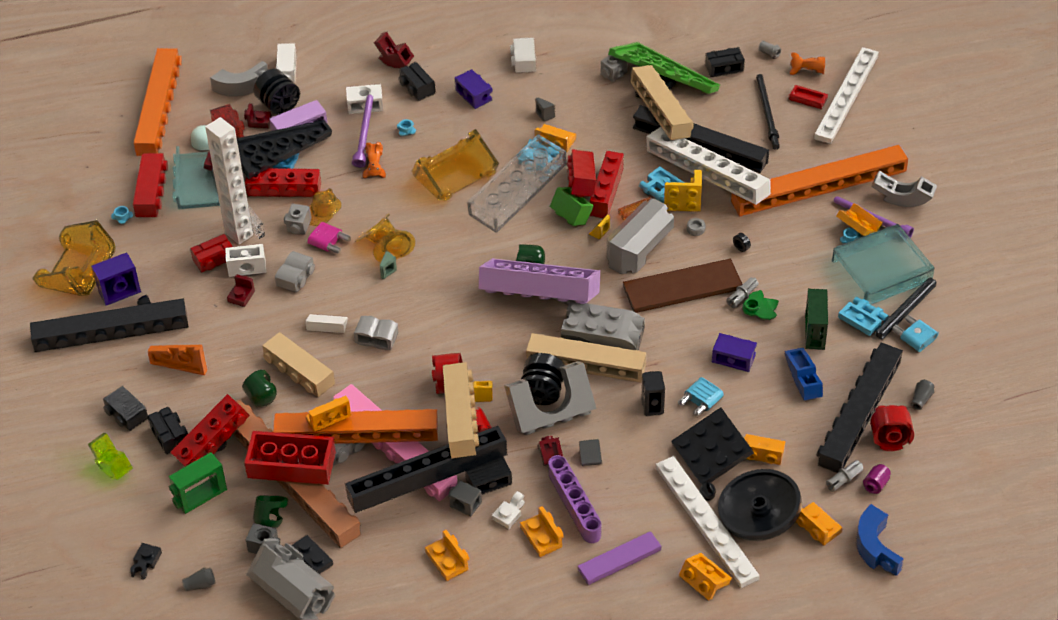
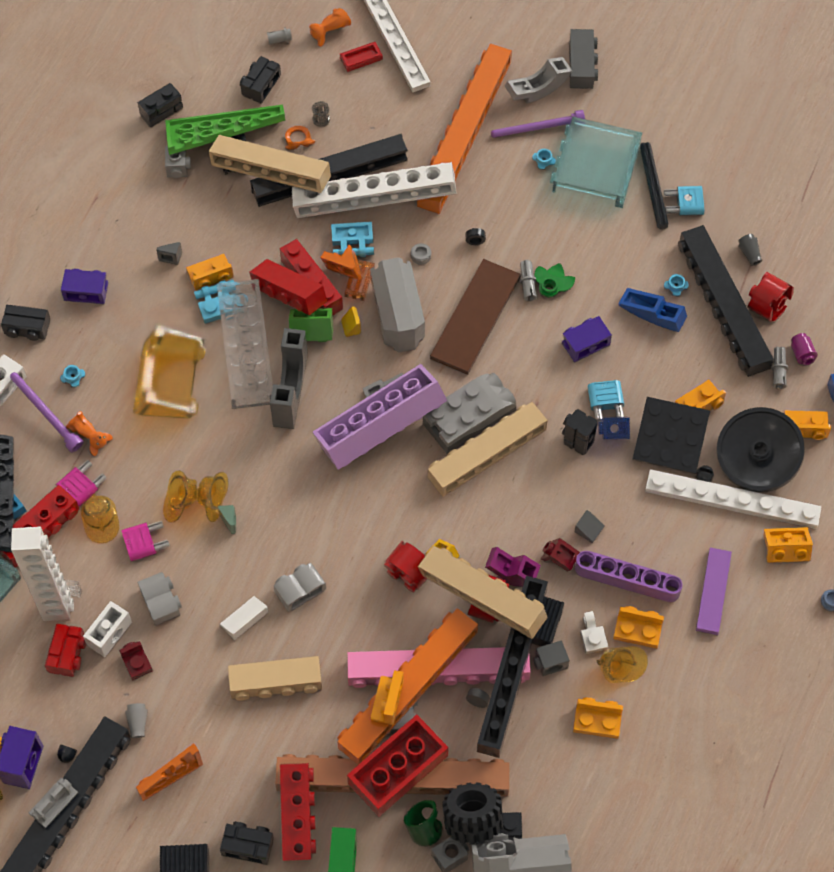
camera: 50 degrees left, 15 degrees up
(103, 312) = (53, 802): none -> light grey hinge
(200, 319) = (136, 717): none -> light grey cone
(259, 388) = (277, 731): dark green helmet -> none
(298, 219) = (97, 548): light grey brick -> none
(298, 524) = (472, 813): none -> black tyre
(334, 181) = (79, 485): none -> dark pink piece
(501, 540) = (623, 664): none -> clear yellow piece
(507, 423) = (511, 568): none -> magenta brick
(524, 55) = (86, 215): white brick -> none
(531, 254) = (336, 400): dark green helmet -> none
(535, 216) = (286, 396): none -> dark grey arch
(544, 377) = (486, 500): black wheel -> none
(577, 401) = (532, 495): light grey arch -> none
(638, 190) = (345, 264): none -> orange slope
(644, 30) = (160, 105): none -> black brick
(684, 195) = (392, 231): yellow bracket -> none
(686, 415) = (623, 424): none -> clear blue brick
(709, 116) = (294, 145): none -> orange piece
(736, 106) = (324, 118): none -> clear smoke bush
(773, 134) = (377, 115): black bar -> none
(816, 319) = (615, 254): dark green window -> none
(840, 373) = (680, 281): none -> medium azure plate
(858, 315) = (636, 224): medium azure plate -> none
(860, 220) = (538, 137): light orange bracket -> none
(955, 201) = (583, 58): none -> dark grey brick

